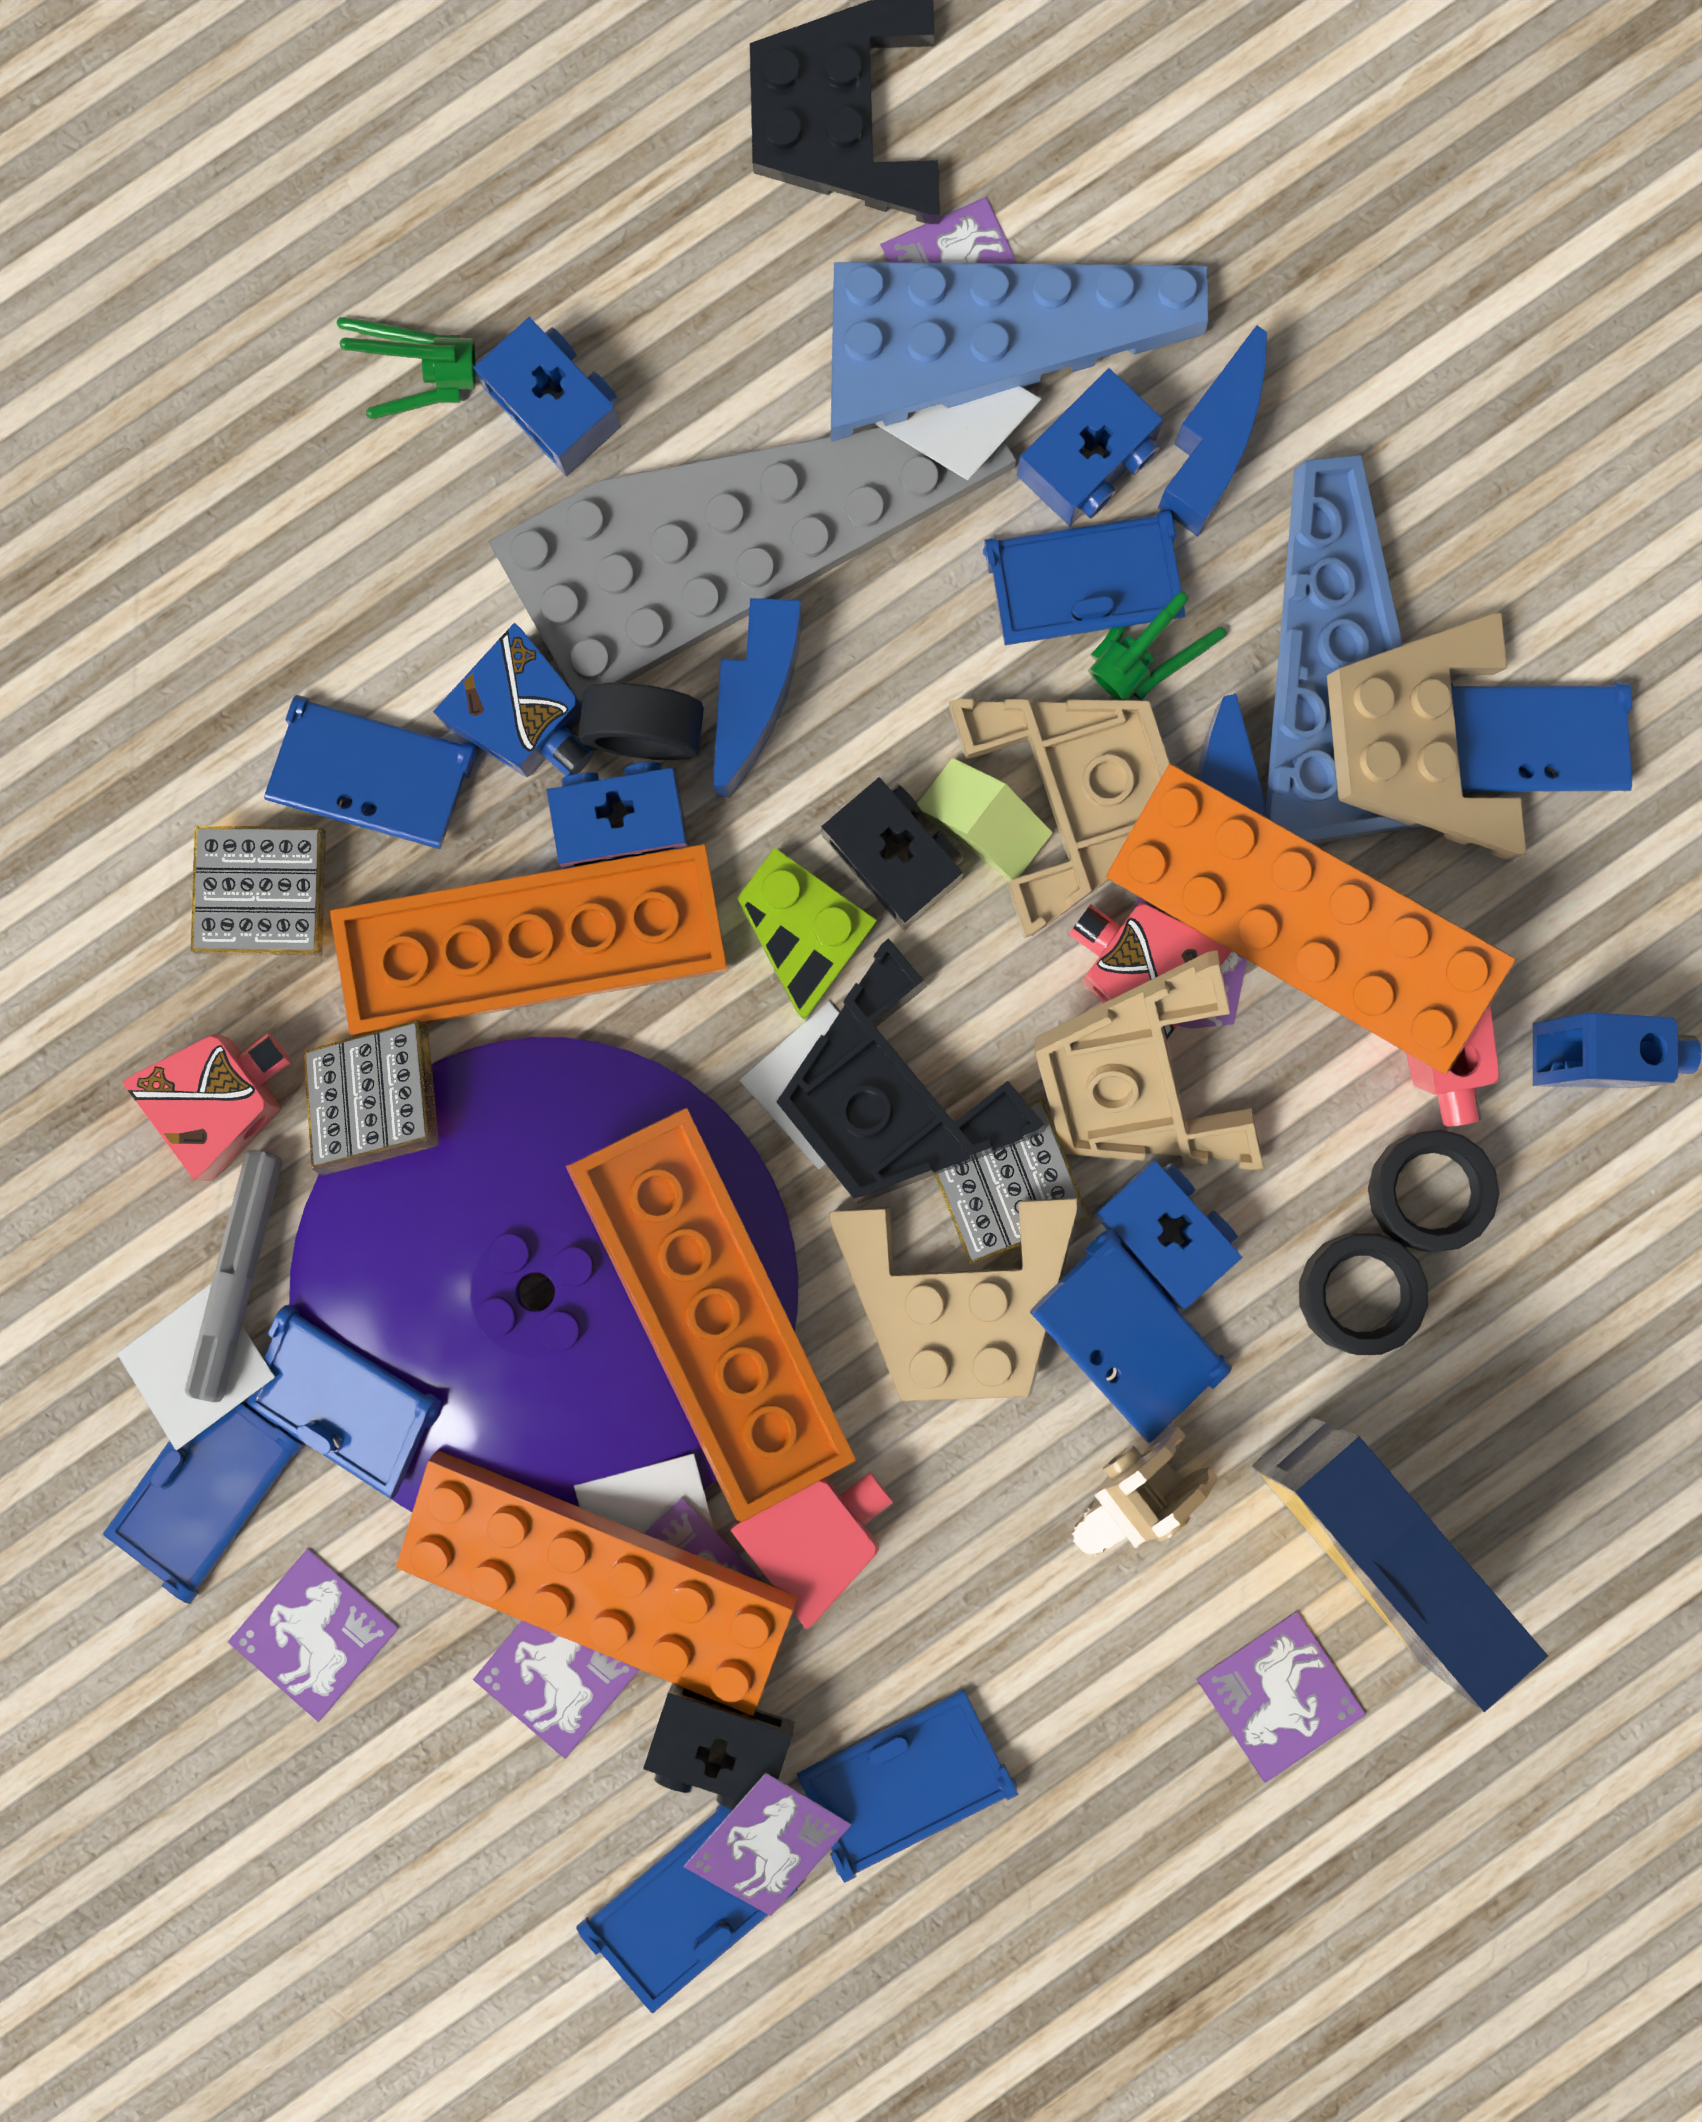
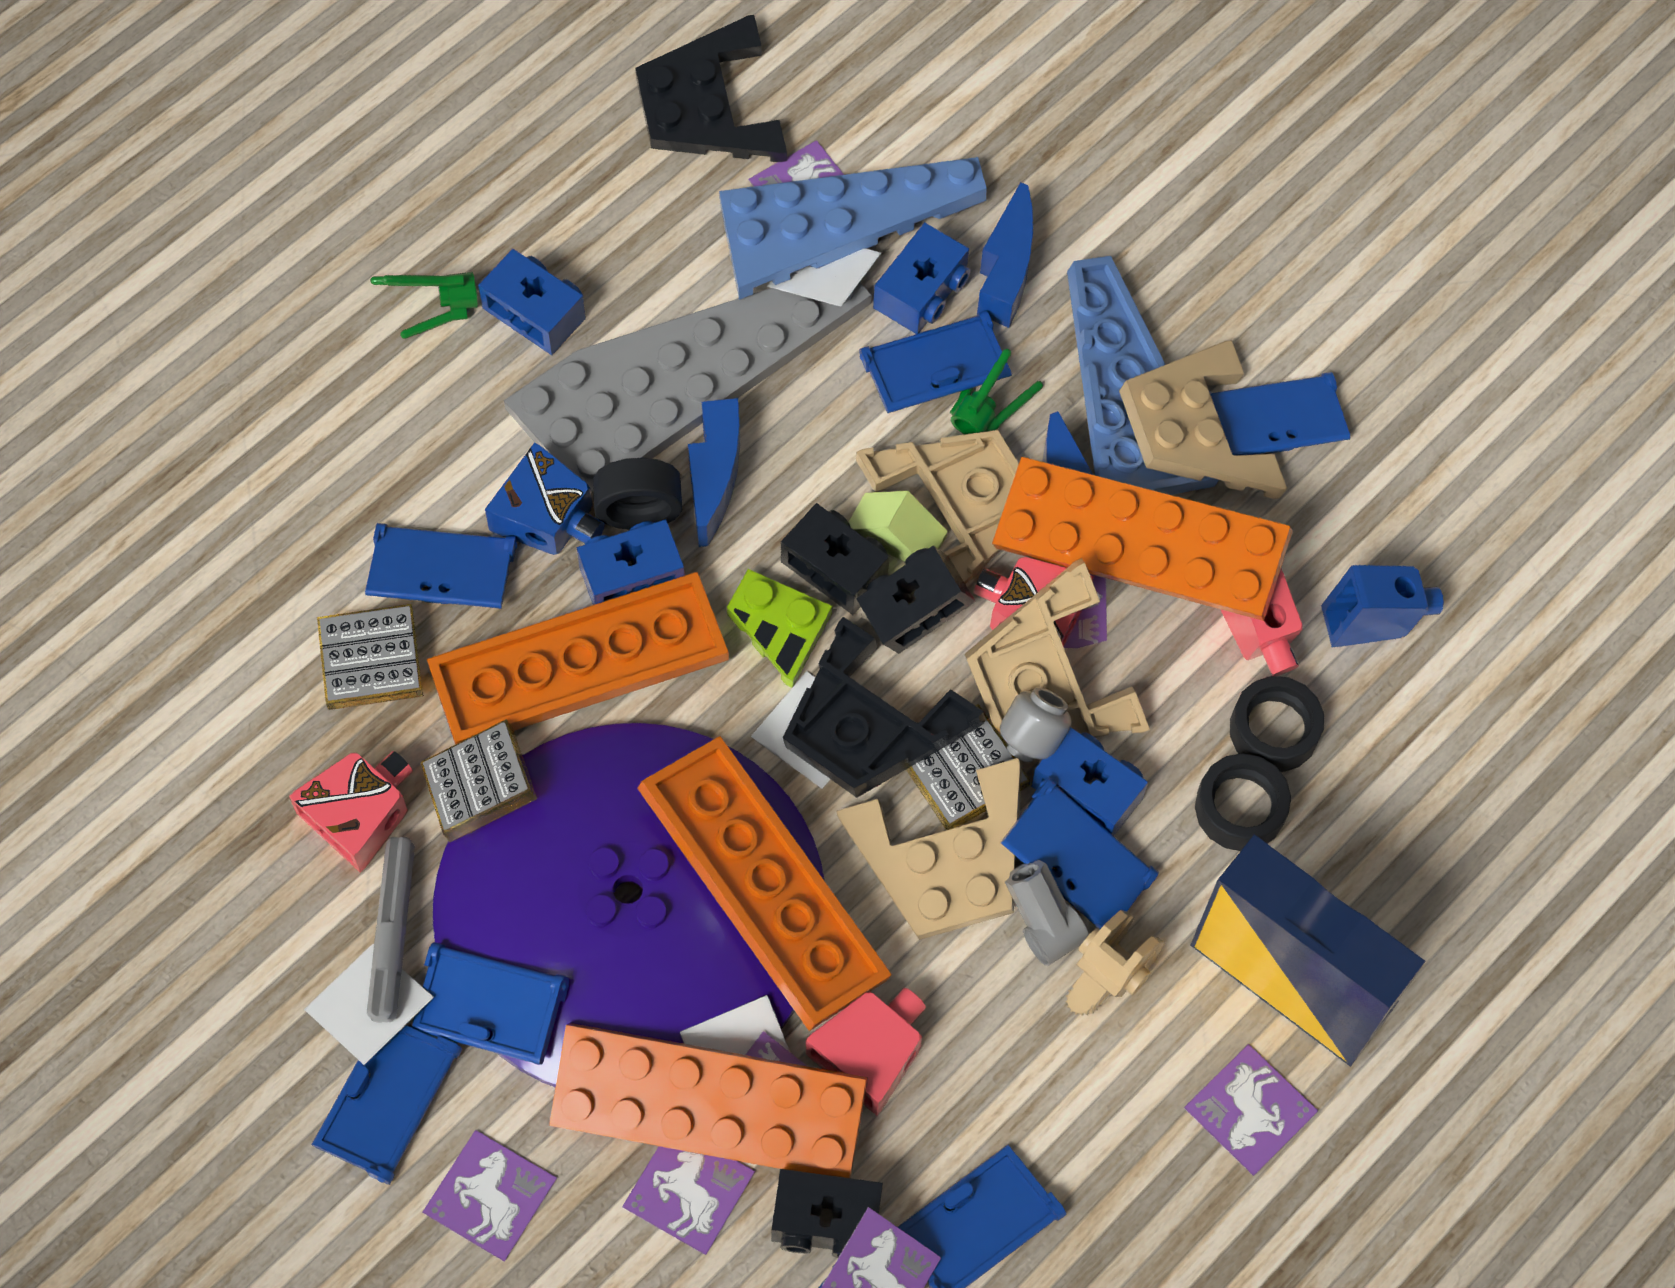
camera: 20 degrees left, 20 degrees down
(1021, 938) = (938, 596): none -> black brick
(1072, 1411) = (1051, 922): none -> light grey piece
(1110, 1152) = (1035, 724): none -> light grey head

